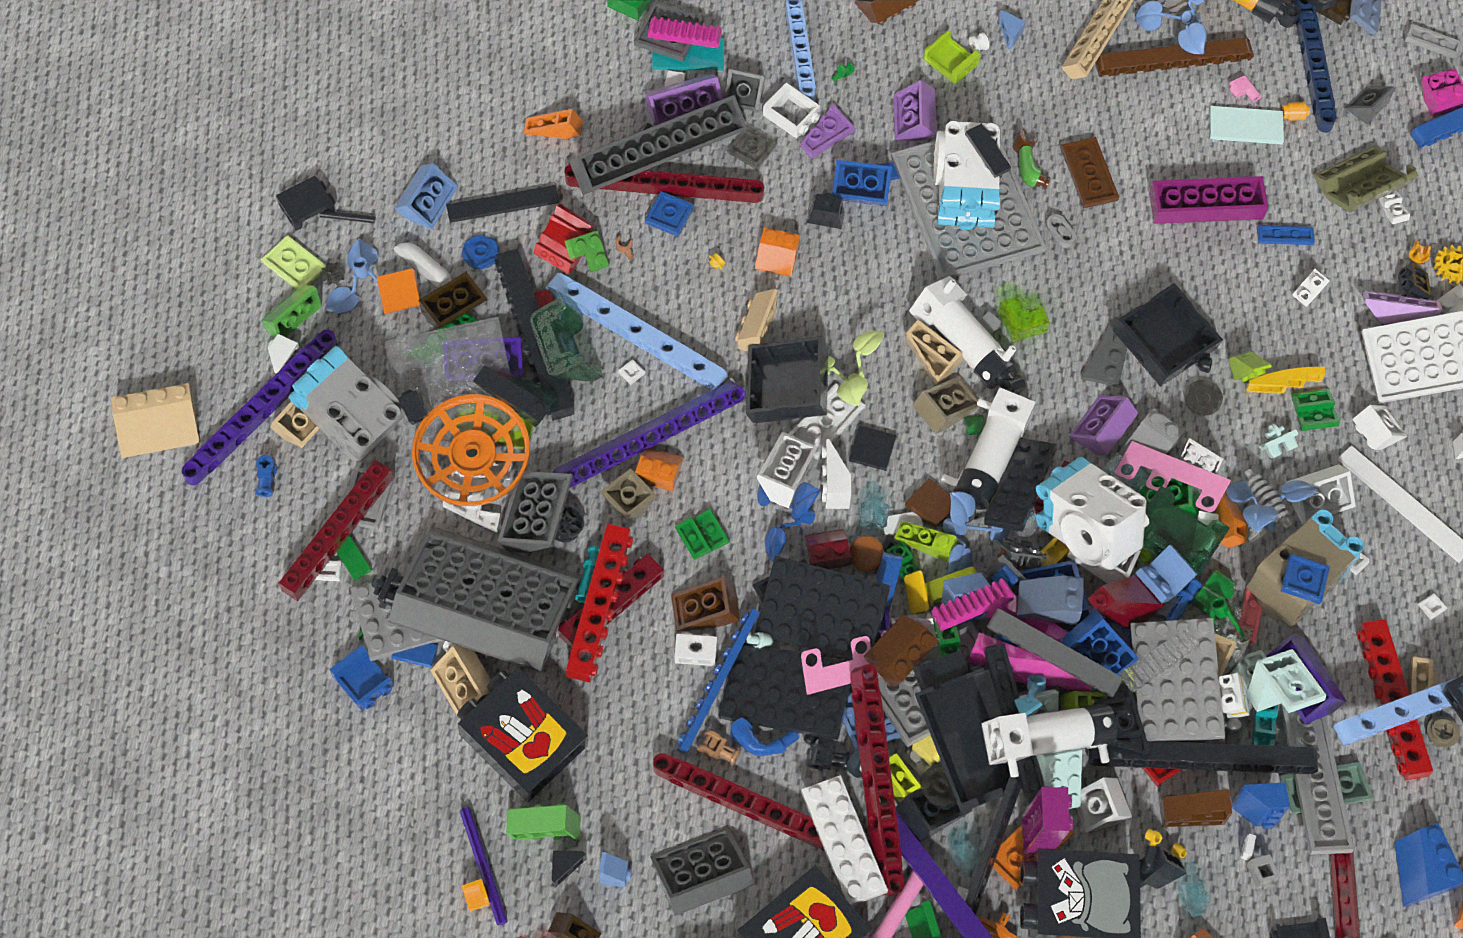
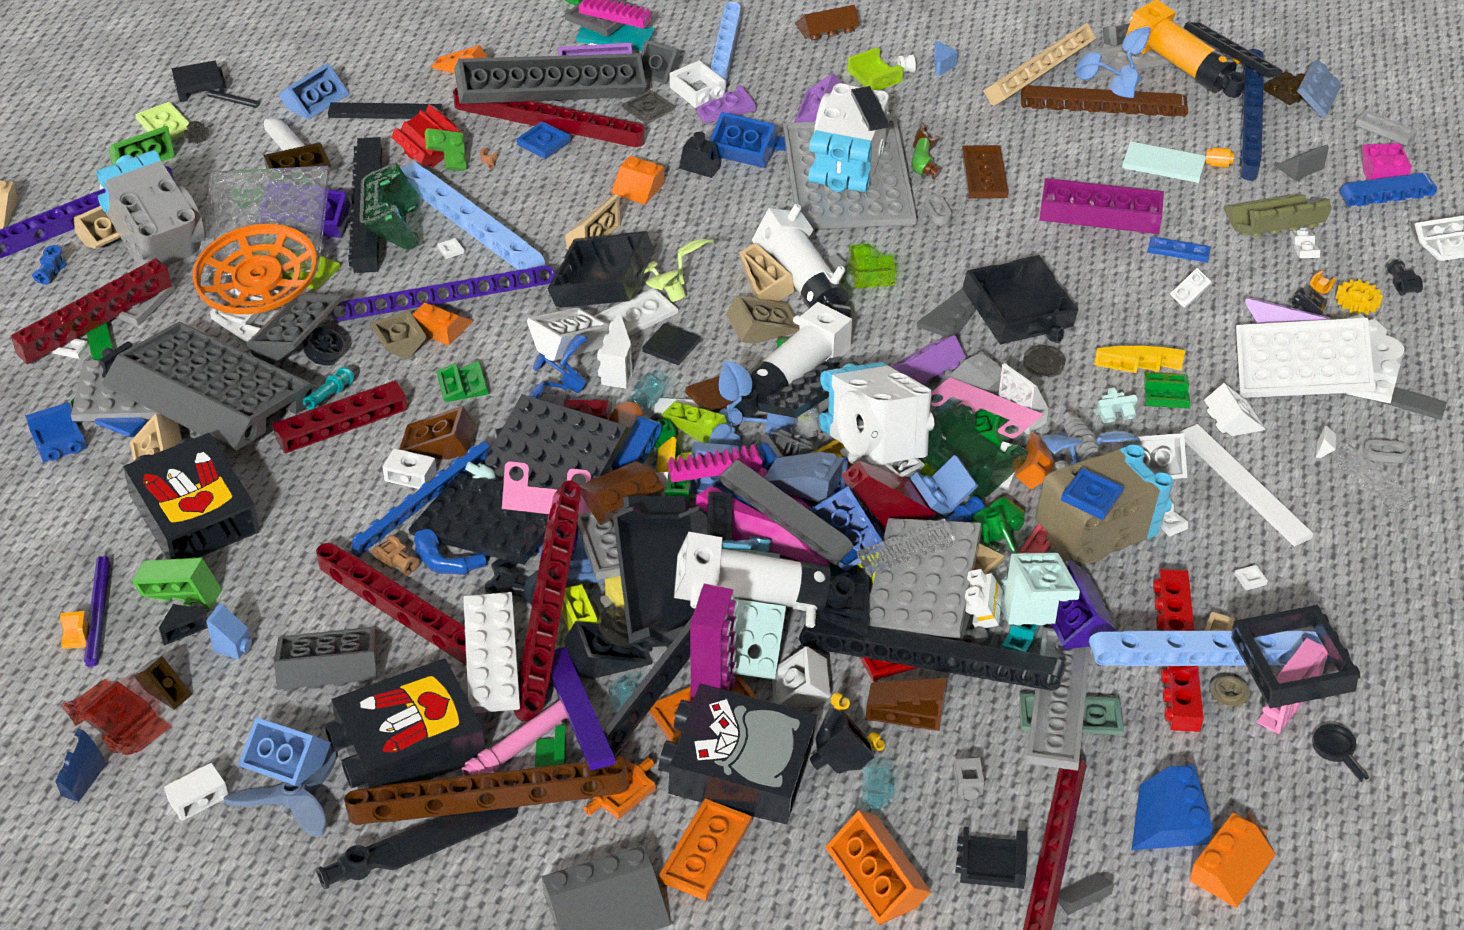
camera: 15 degrees right, 20 degrees down
(359, 259) = (223, 126): medium blue plant -> none
(399, 291) = (249, 151): orange tile -> none
(413, 406) = (212, 220): black slope -> none
(483, 256) = (344, 140): blue tile -> none
(525, 397) = (329, 239): black wedge -> none
(612, 537) = (321, 406): red brick -> none
(716, 261) = (574, 180): yellow plate -> none
(843, 72) = (758, 67): green piece -> none
(1243, 85) = (1170, 132): bright pink piece -> none
(1248, 366) = (1097, 335): lime slope -> none
(1248, 846) = (958, 750): white tile -> none
(1262, 803) = (982, 702): blue slope -> none

